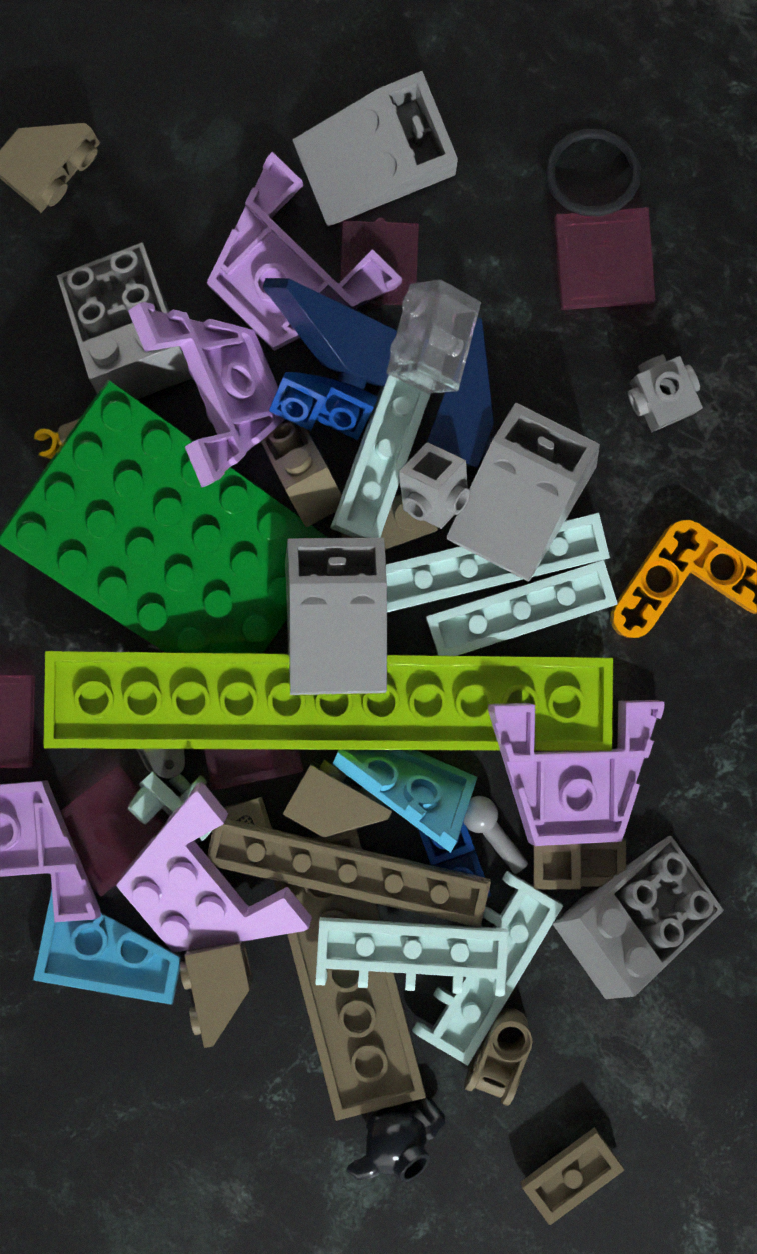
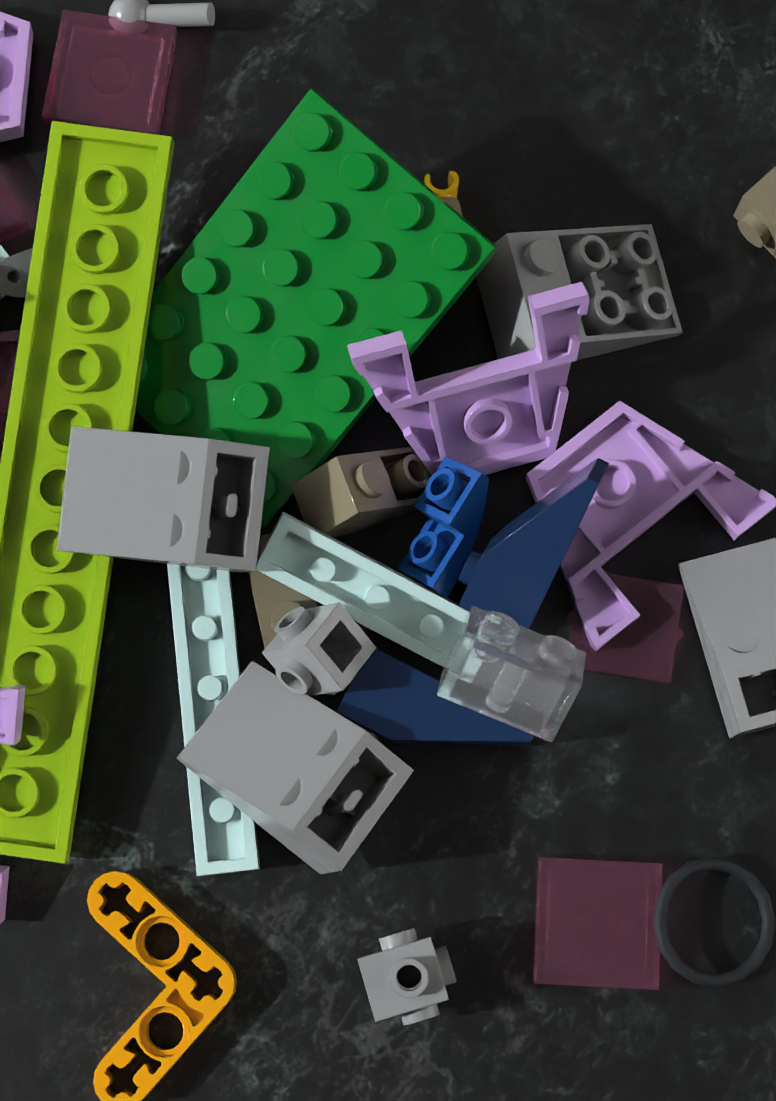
camera: 100 degrees right, 10 degrees down
(522, 610) = (146, 752): light aqua plate -> none

